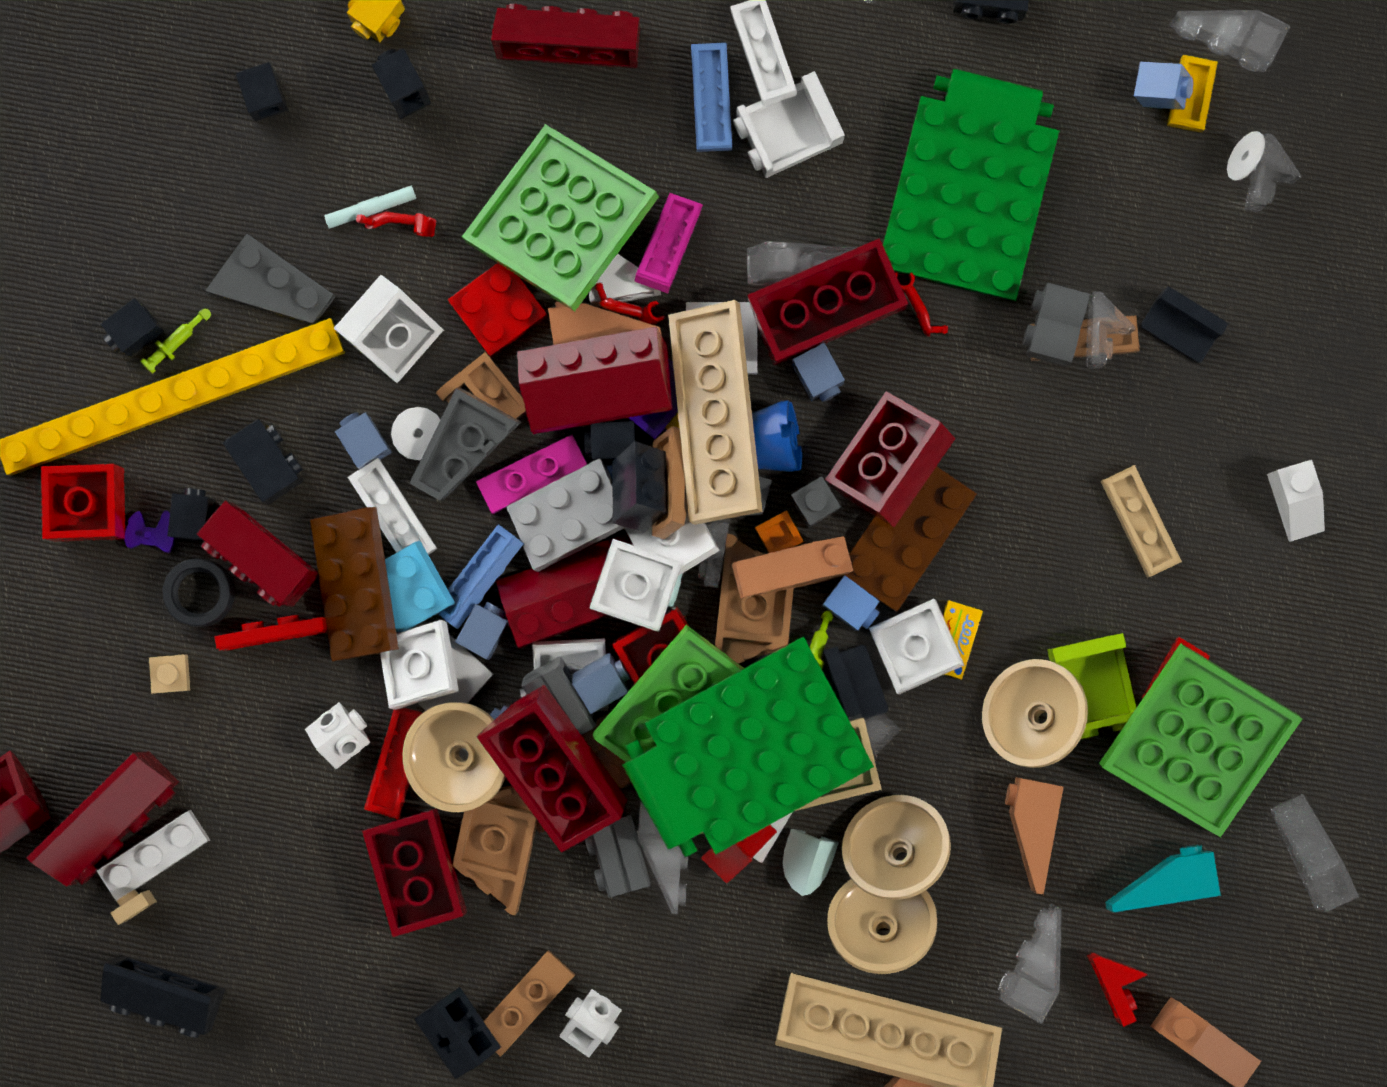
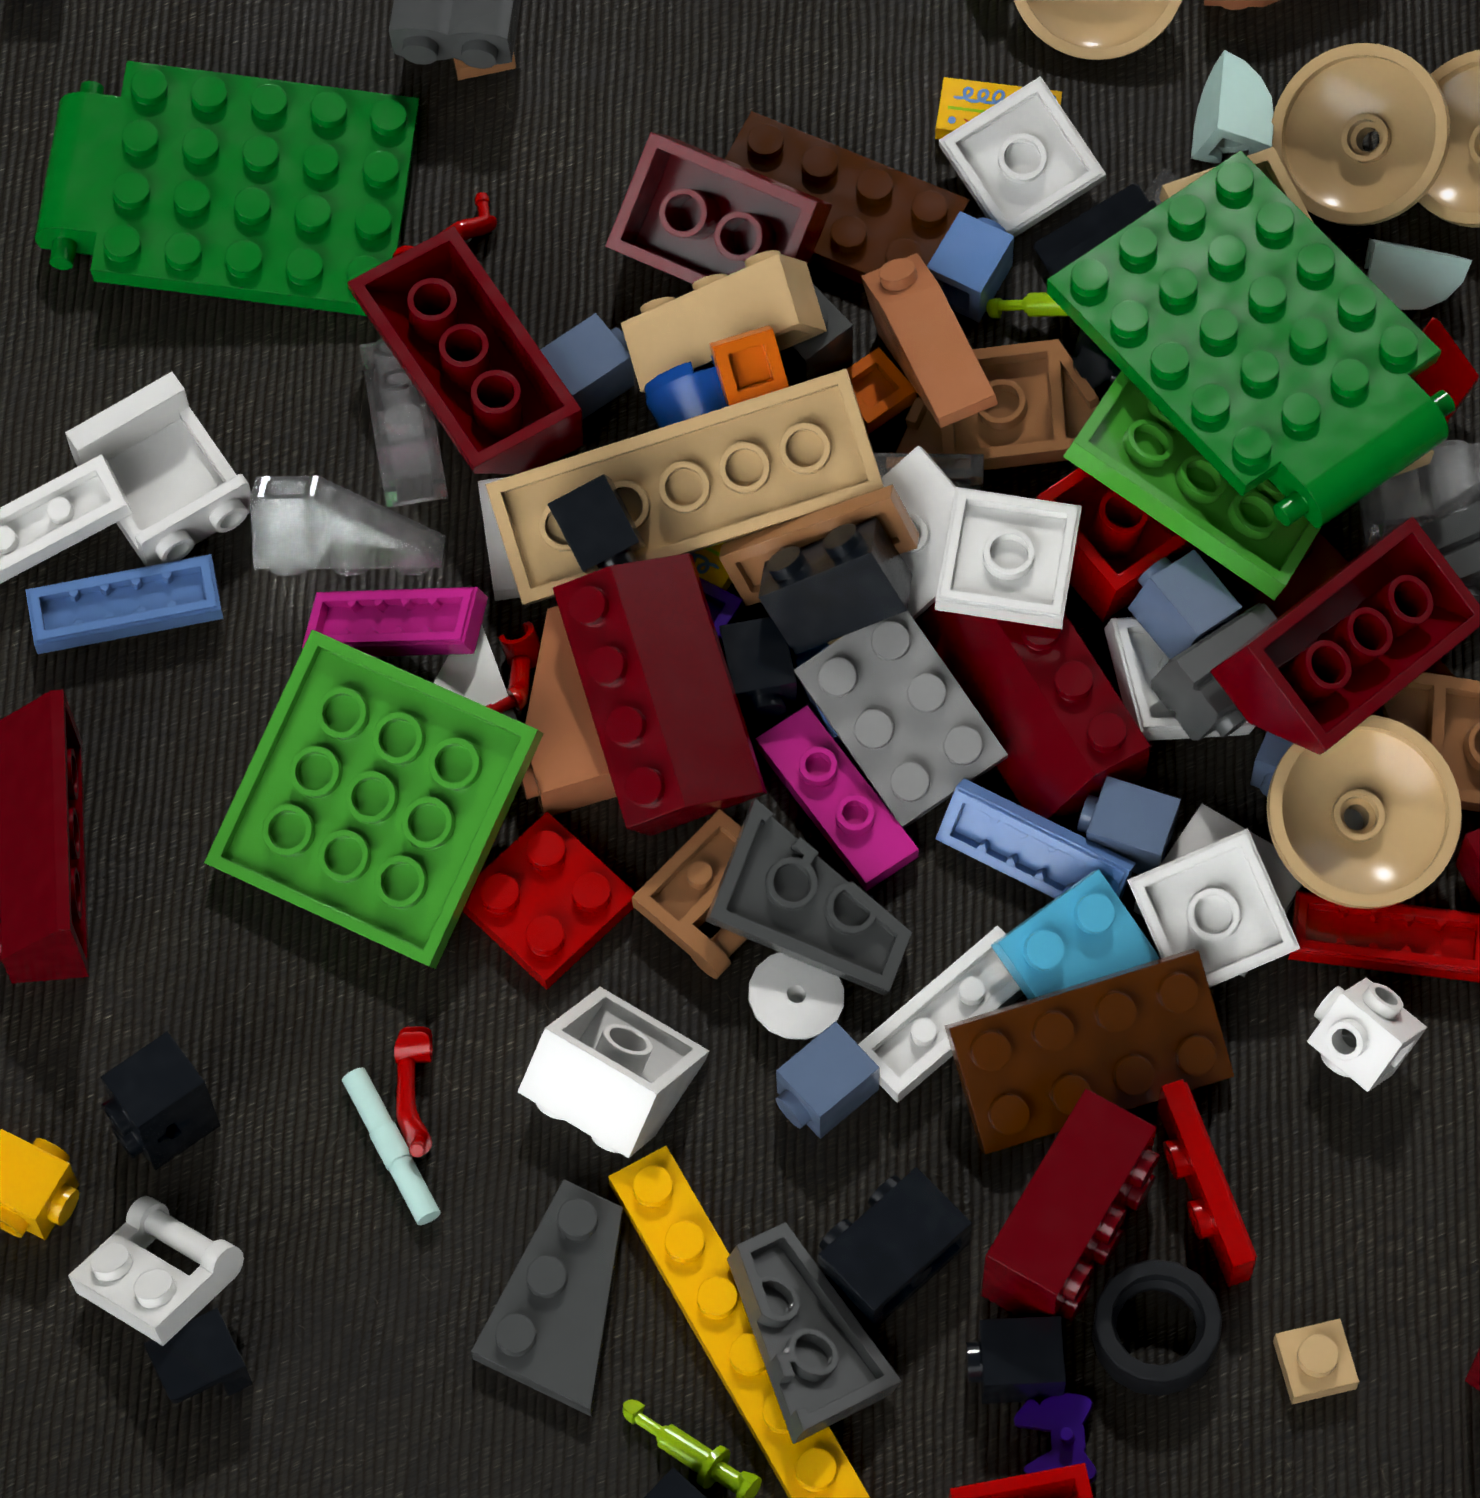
camera: 95 degrees left, 20 degrees down
(221, 407) = (806, 1335): none -> dark grey wing
(304, 65) = (144, 1287): none -> white plate
(692, 357) = (597, 525): none -> black brick
(735, 213) = (323, 526): none -> clear slope
(774, 455) = (748, 365): none -> orange plate
(818, 449) = (767, 292): none -> tan brick
(931, 777) = (1232, 112): none -> light aqua brick

